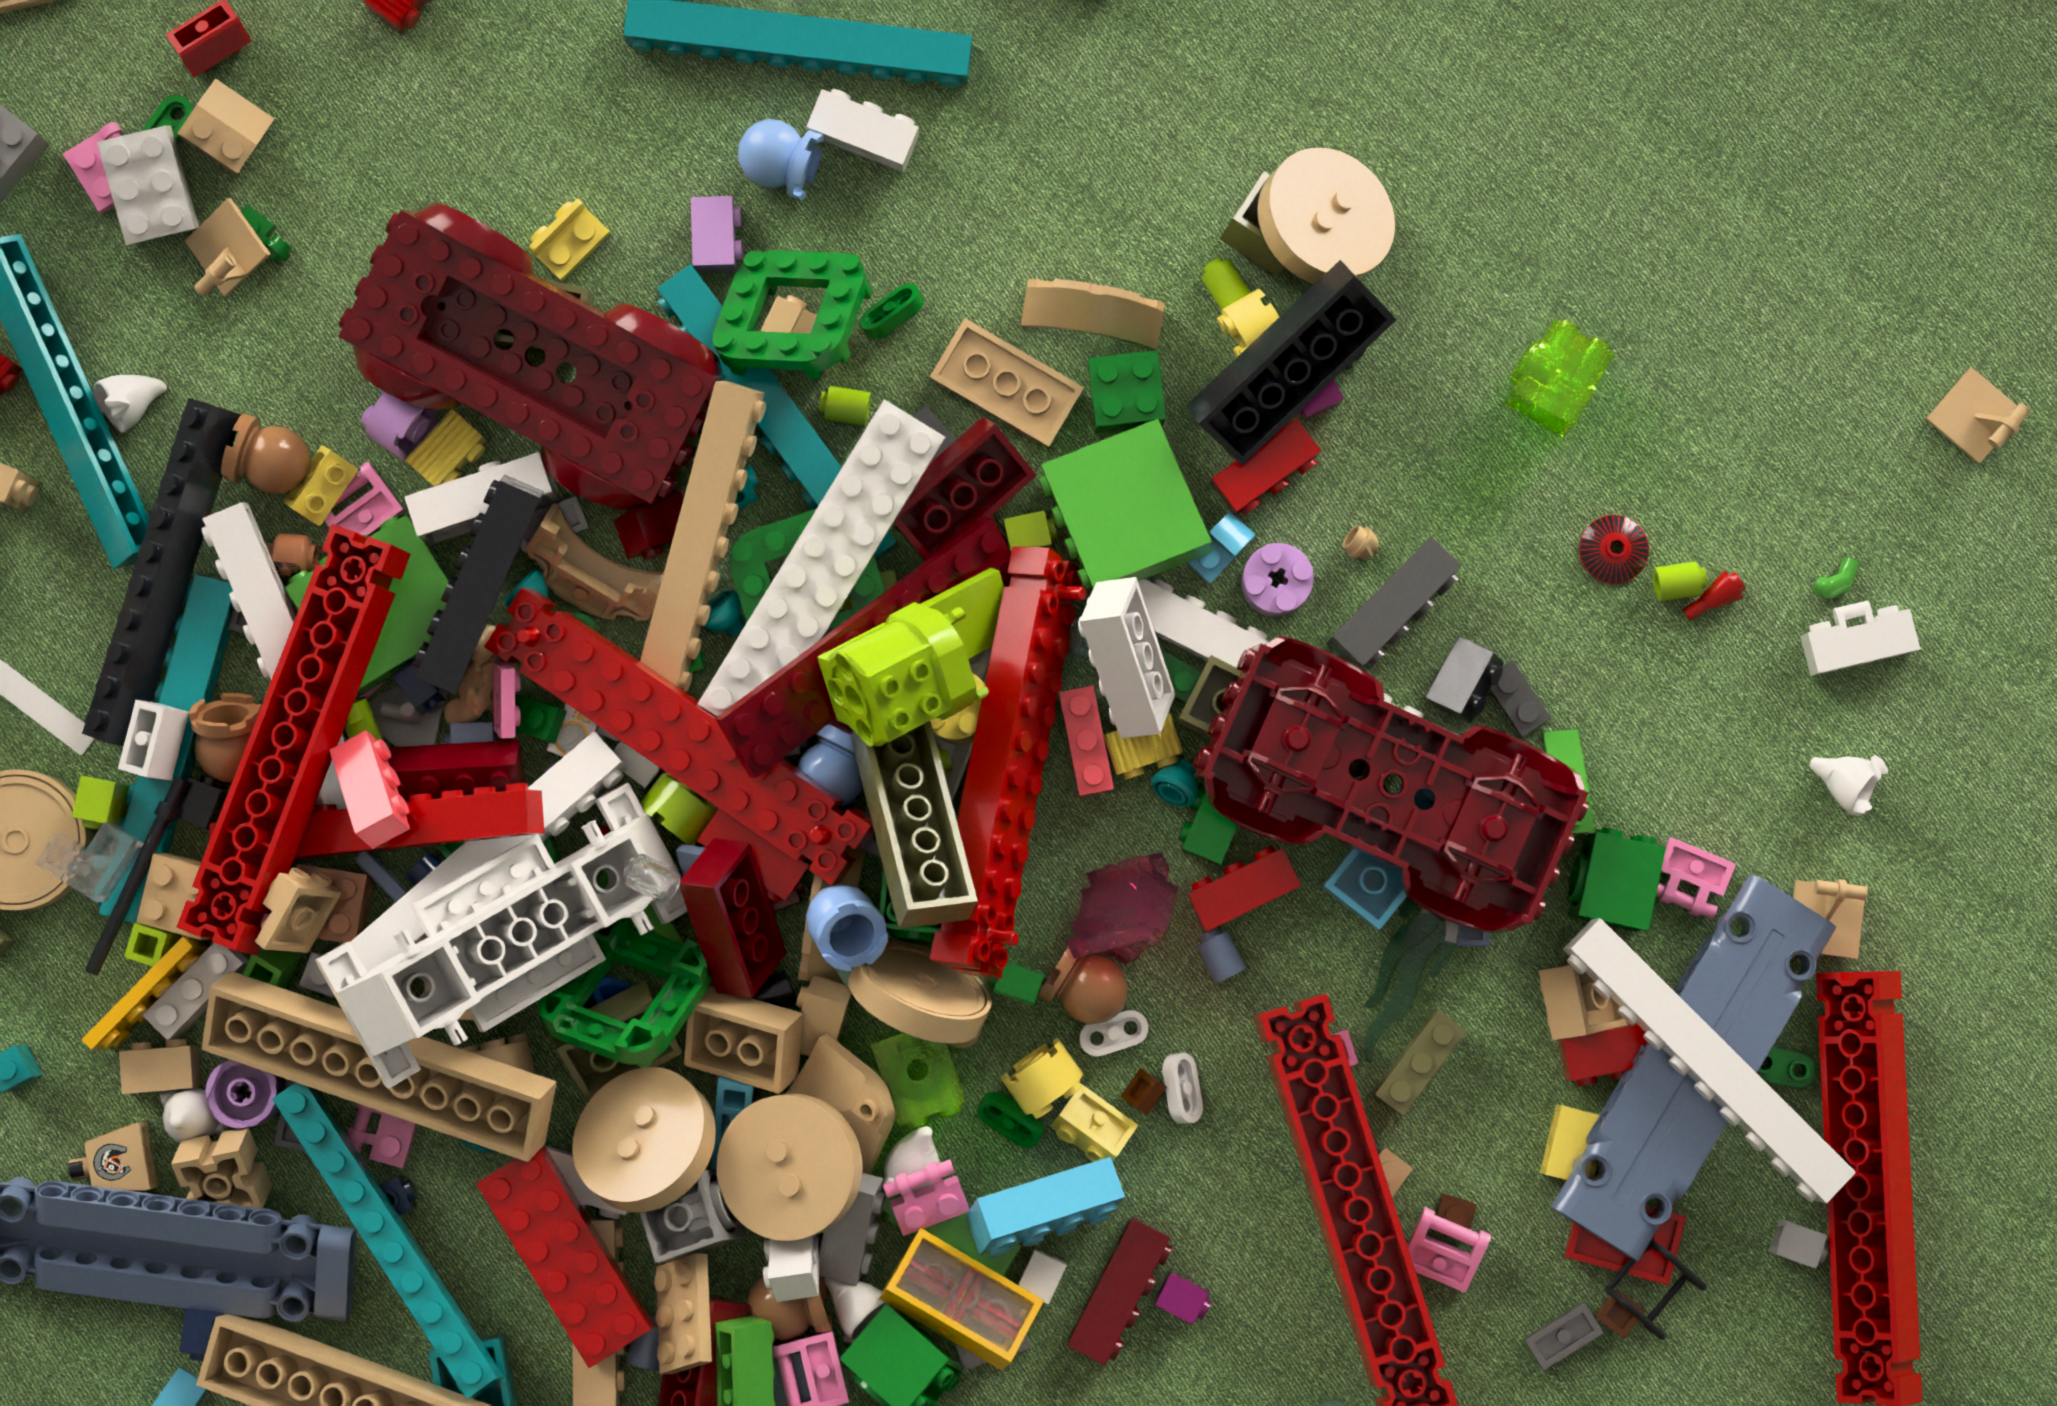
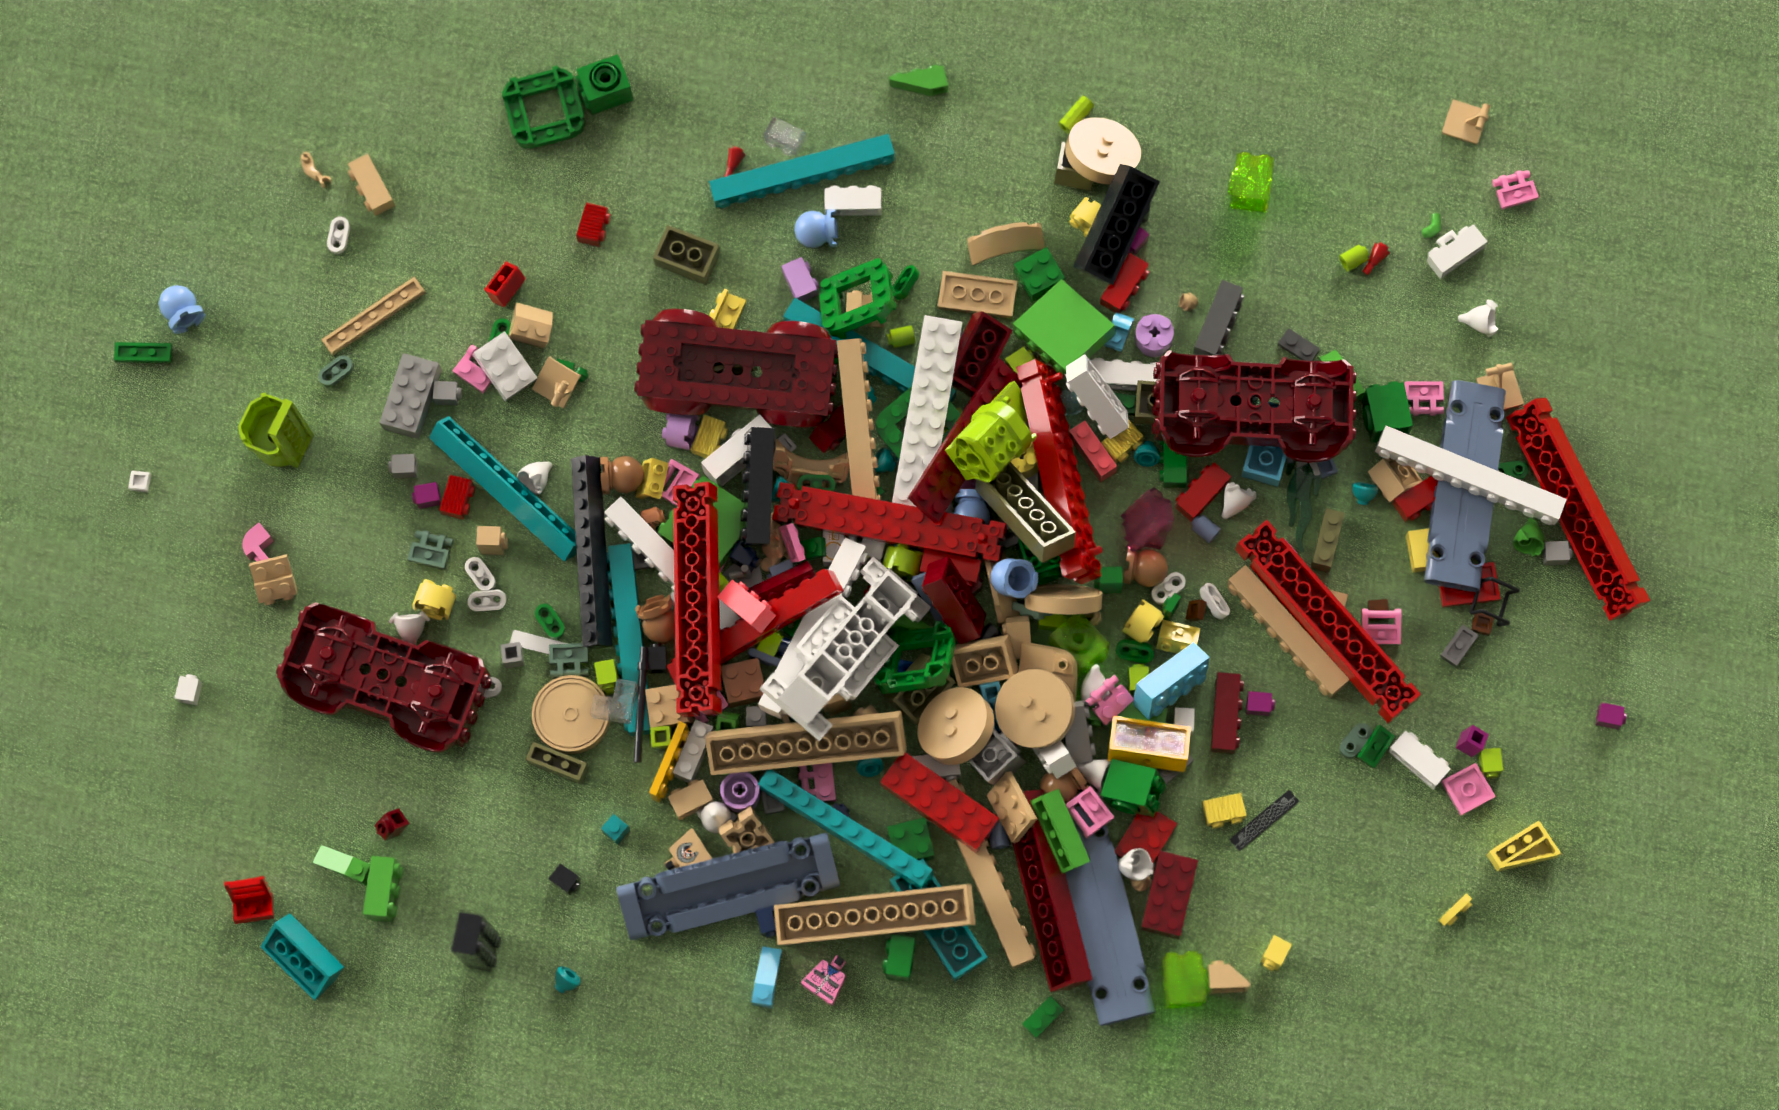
camera: 15 degrees left, 10 degrees down
(36, 190) = (446, 393): none -> light grey brick
(47, 664) = (550, 621): none -> green plate
(59, 733) = (568, 654): none -> sand green plate
(153, 740) = (623, 631): white brick -> none
(298, 910) = (735, 682): tan plate -> none
(399, 862) = (771, 644): none -> lime brick
(496, 1295) = (912, 838): none -> green brick
(538, 111) = (686, 254): none -> olive brick
(592, 608) = (816, 481): none -> green plate
(651, 877) = (908, 588): clear brick -> none
(996, 1170) = (1136, 674): none -> lime brick
(1101, 1071) = (1170, 606): none -> green plate
(1224, 282) = (1064, 203): lime brick -> none
(1283, 1193) = (1287, 631): none -> tan brick
(1295, 926) = (1236, 499): none -> white hat
(1310, 130) = (1076, 114): none -> lime axle
(1465, 680) = (1269, 344): brick -> none
(1518, 1002) = (1364, 492): none -> teal brick
(1601, 561) = (1313, 264): dish -> none
(1764, 1201) = (1530, 539): none -> bright green hat
(2009, 582) = (1518, 194): none -> bright pink plate

